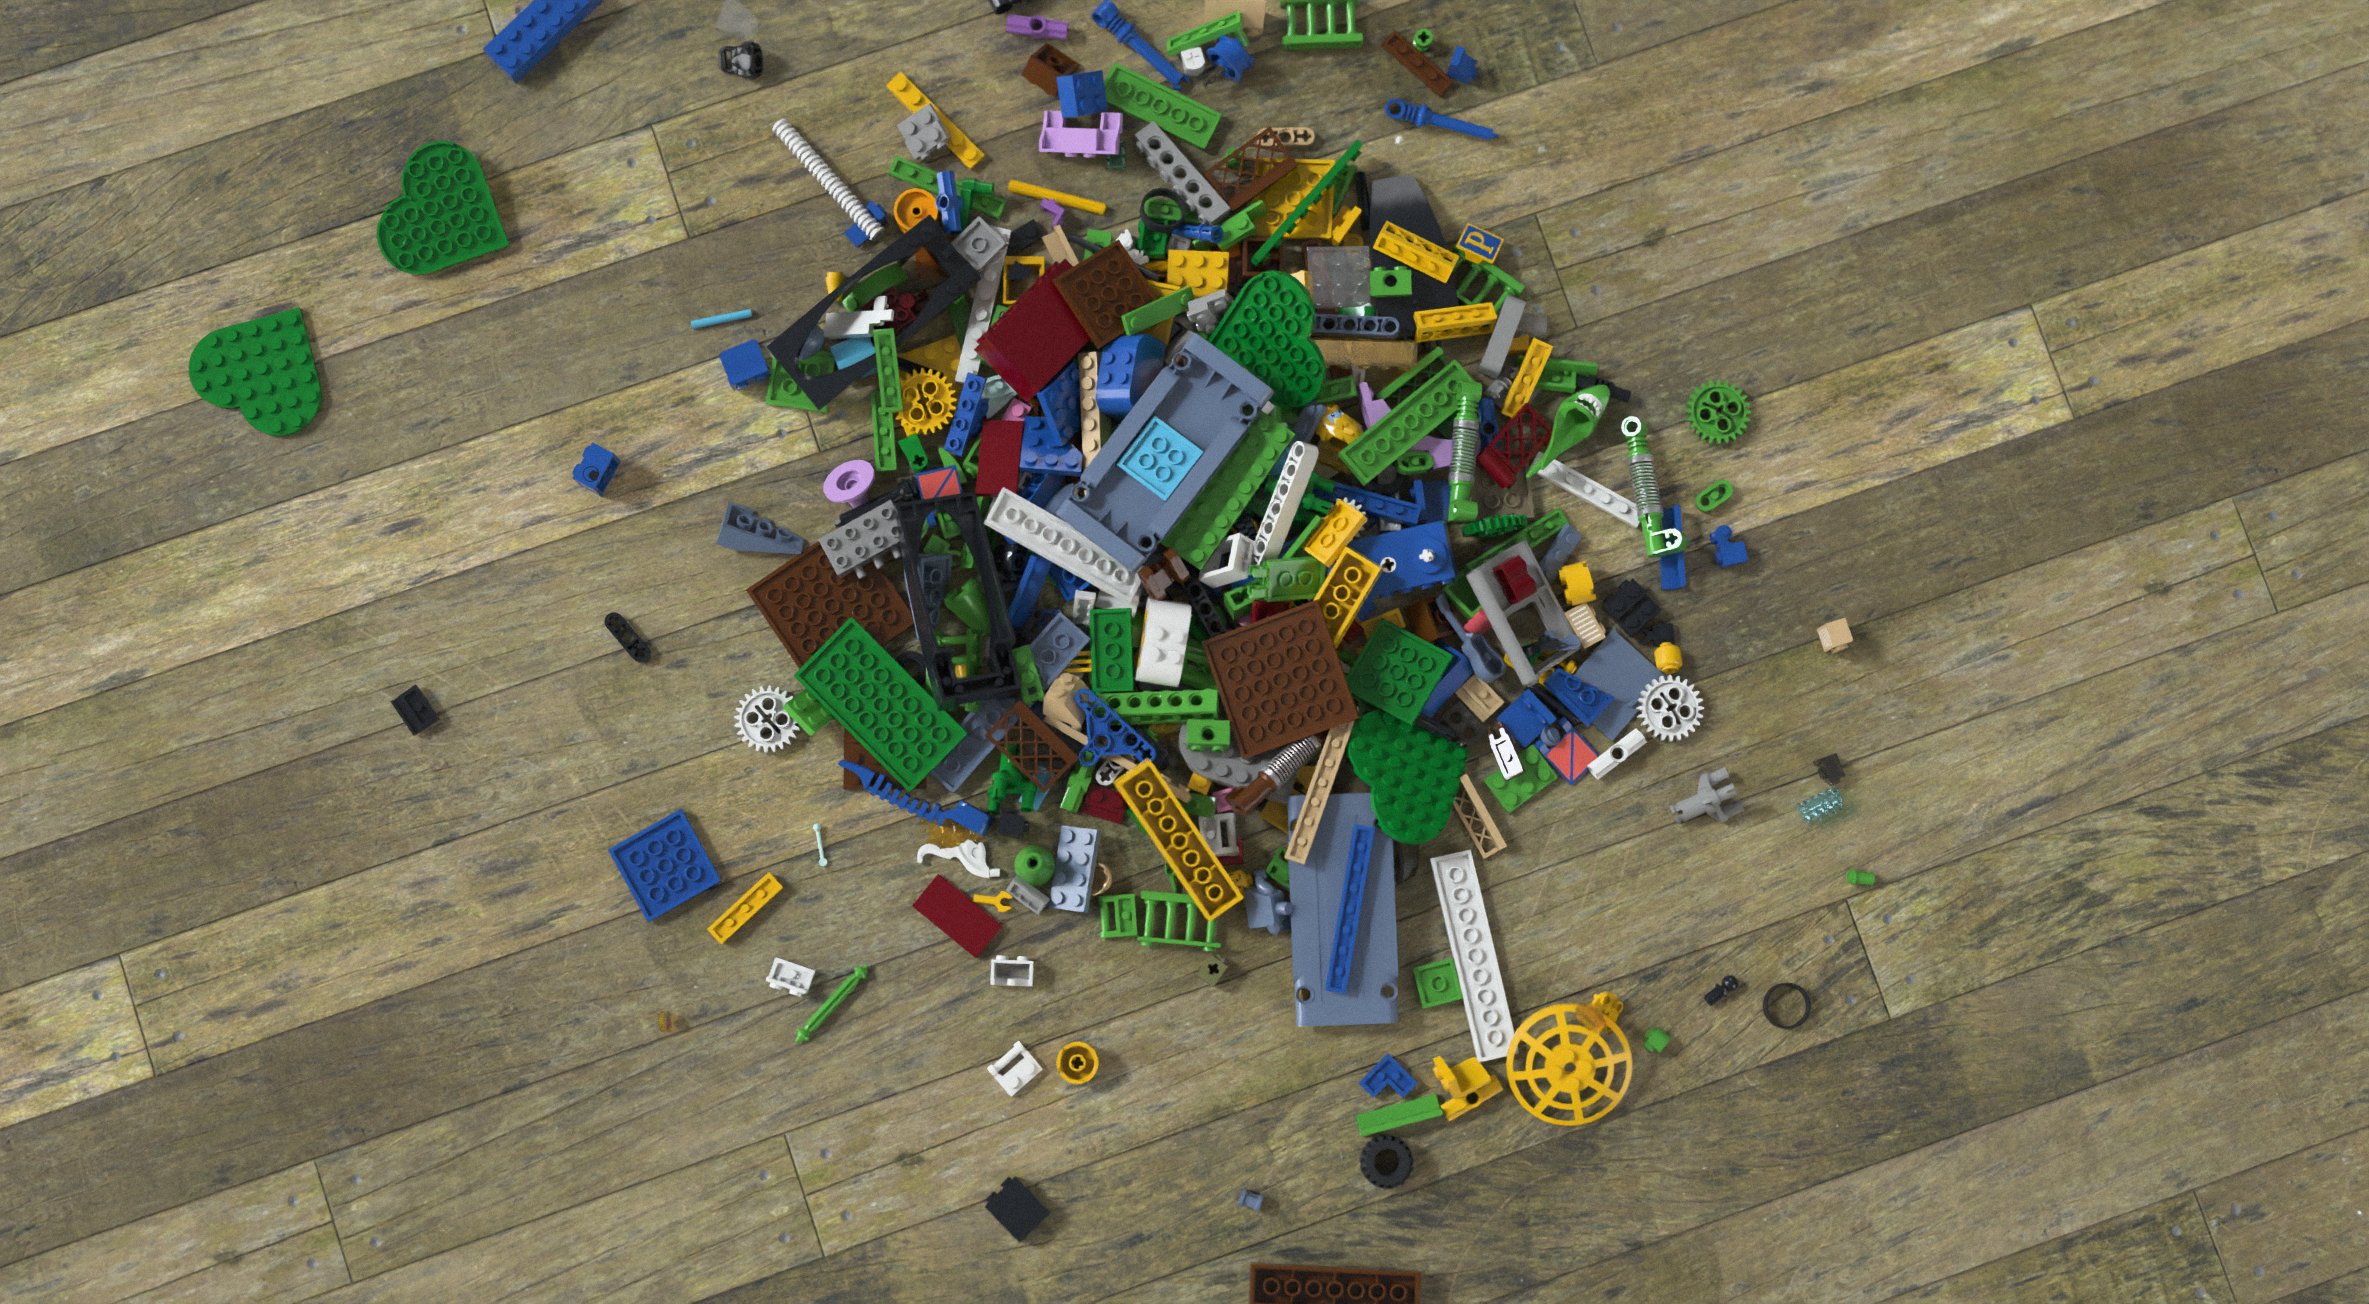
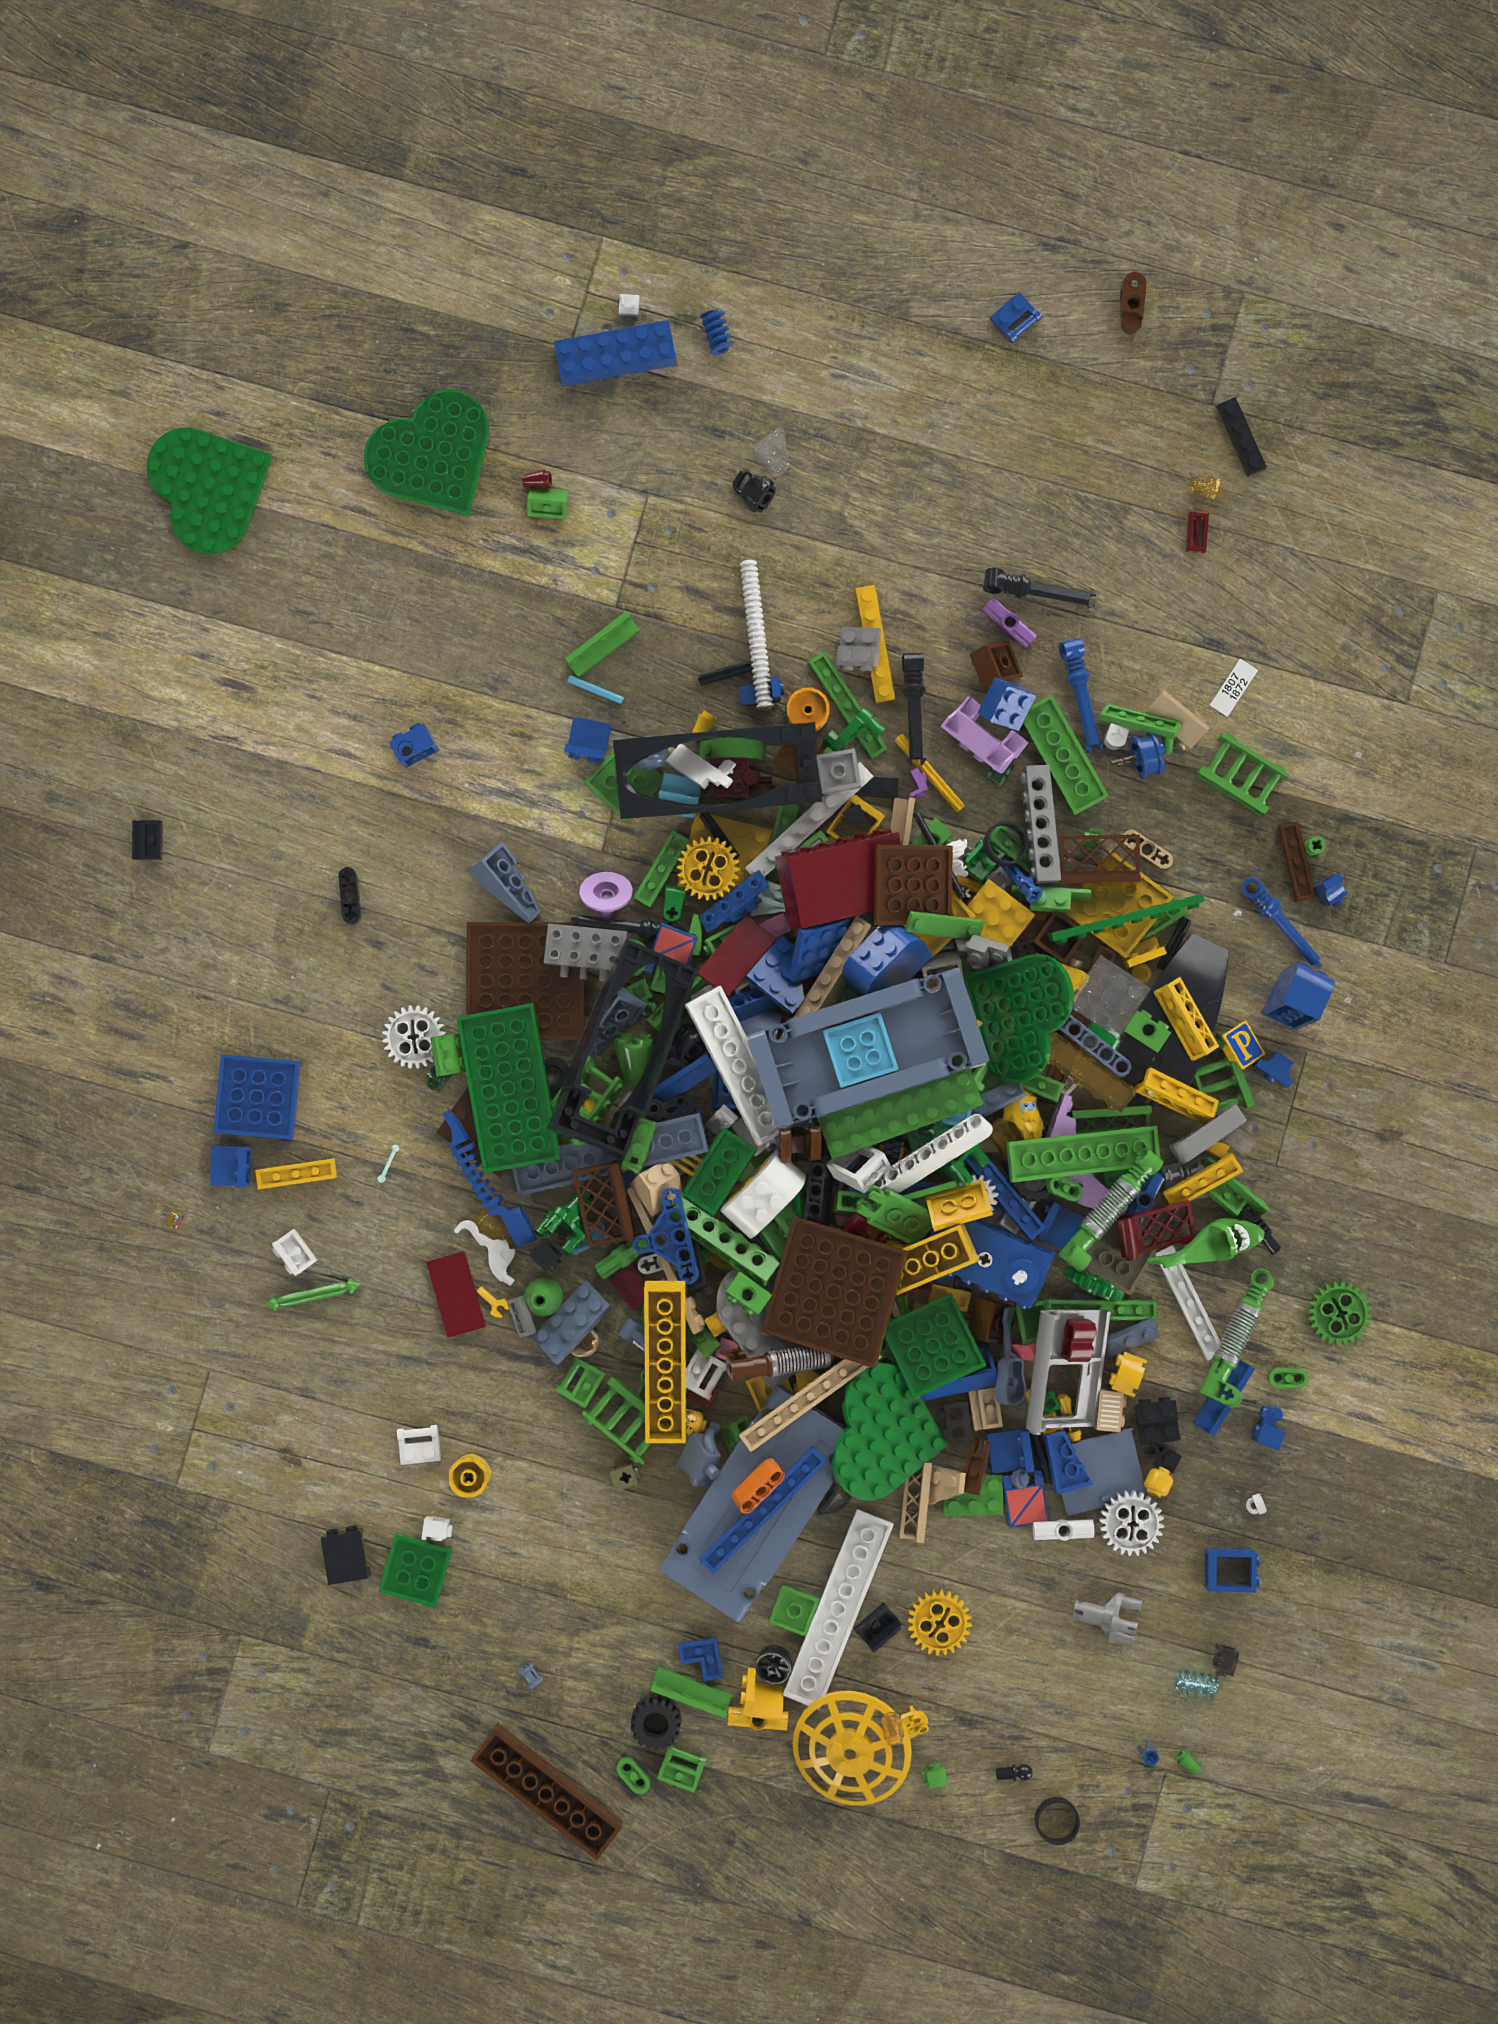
camera: 45 degrees right, 5 degrees up
(548, 175) = (539, 479): none -> dark red cone
(570, 189) = (547, 503): none -> bright green panel
(682, 941) = (230, 1166): none -> blue bracket
(700, 276) = (602, 644): none -> bright green fence
(813, 744) = (434, 1082): none -> clear green bracket
(823, 230) = (724, 673): none -> black axle
(888, 370) = (695, 825): bright green piece -> none
(949, 203) = (838, 721): blue piece -> none
(994, 135) = (913, 690): none -> black piece
(1012, 972) = (468, 1368): window -> none
(1081, 1129) = (436, 1528): none -> white brick
(1087, 1179) = (415, 1570): none -> green plate
(1135, 841) = (633, 1333): none -> sand blue piece
(1330, 890) = (758, 1485): none -> orange beam
(1382, 608) = (959, 1284): none -> black bush
(1399, 1223) = (631, 1775): none -> bright green plate
(1435, 727) = (933, 1411): black axle -> none
(1438, 1194) = (679, 1774): none -> bright green plate
(1453, 1040) = (779, 1655): none -> black wheel
(1490, 784) = (945, 1484): none -> tan wing
(1496, 170) = (1299, 996): none -> blue brick
(1519, 946) = (878, 1627): none -> black bracket
(1521, 246) = (1275, 1069): none -> blue brick
(1543, 644) = (1064, 1405): black plate -> none
(1549, 906) = (924, 1612): none -> yellow gear
(1571, 639) = (1075, 1405): sand blue piece -> none
(1761, 615) = (1260, 1506): none -> white tile
(1764, 701) = (1210, 1580): none -> blue window
(1823, 892) = (1149, 1755): none -> blue piece
(1835, 636) = (1305, 1559): tan brick -> none

